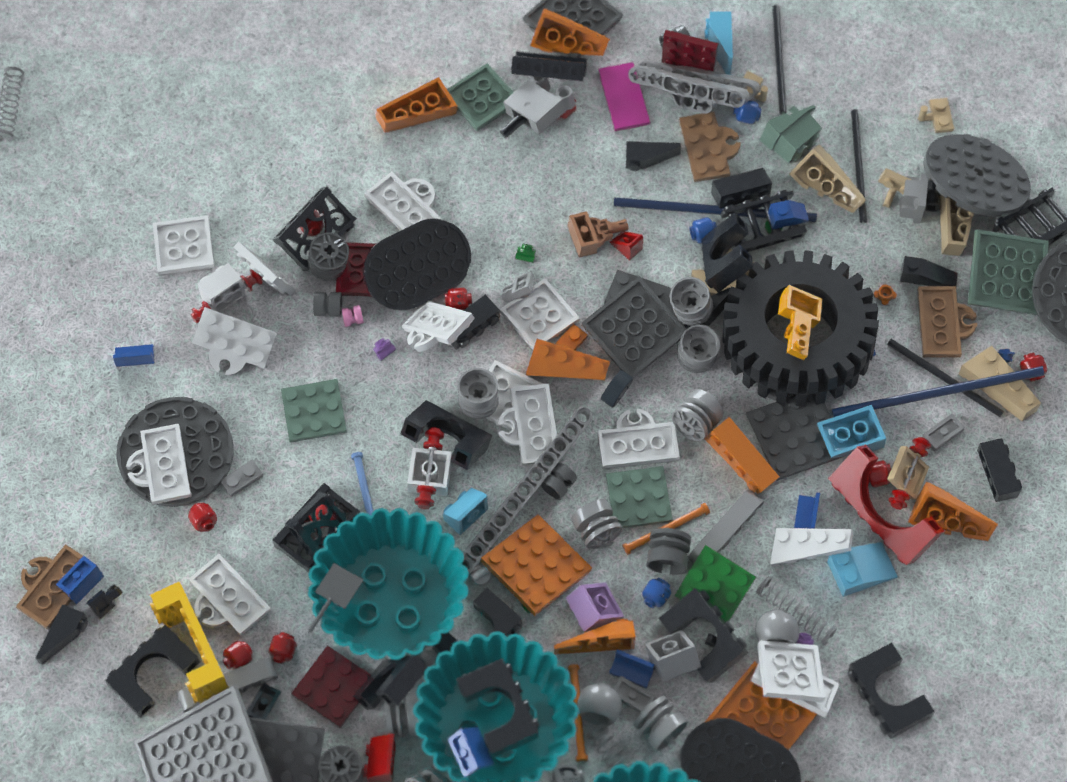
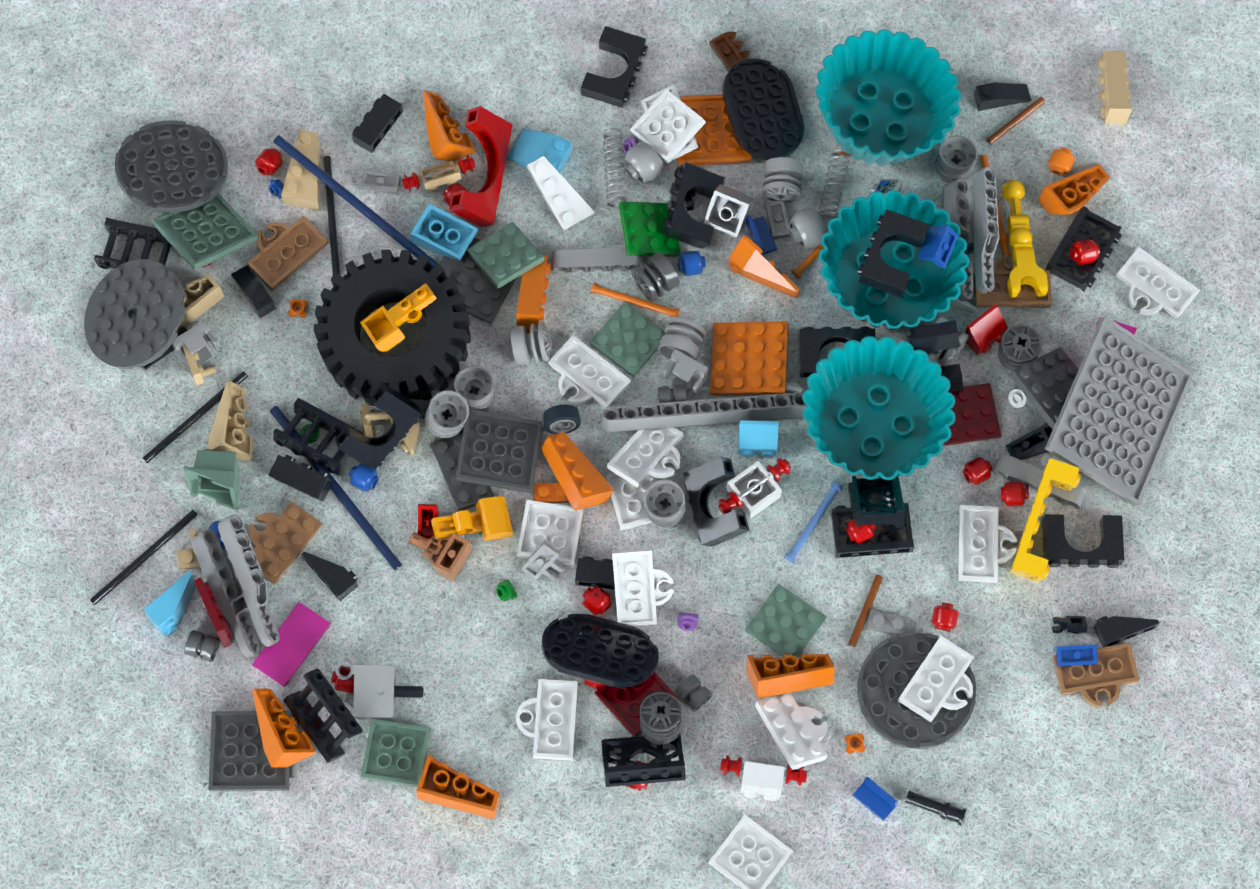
camera: 135 degrees left, 5 degrees up
(77, 391) = (945, 810): none -> black pin
(184, 373) = (850, 739): none -> orange plate
(263, 269) = (717, 758): white plate -> none
(266, 472) = (865, 611): none -> dark orange piece
(275, 371) = (789, 673): none -> orange wedge
(338, 588) = (916, 435): dark grey piece -> none
(352, 316) = (688, 669): bright pink wheel -> none
(567, 502) = (686, 371): none -> light grey panel
(589, 283) = (490, 519): none -> light orange plate
(594, 606) = (741, 295): lavender slope -> none
(787, 214) = (299, 418): blue slope -> none
(790, 459) = (505, 255): none -> sand green plate
(806, 512) = (533, 217): blue panel -> none
(939, 114) = (92, 394): tan plate -> none

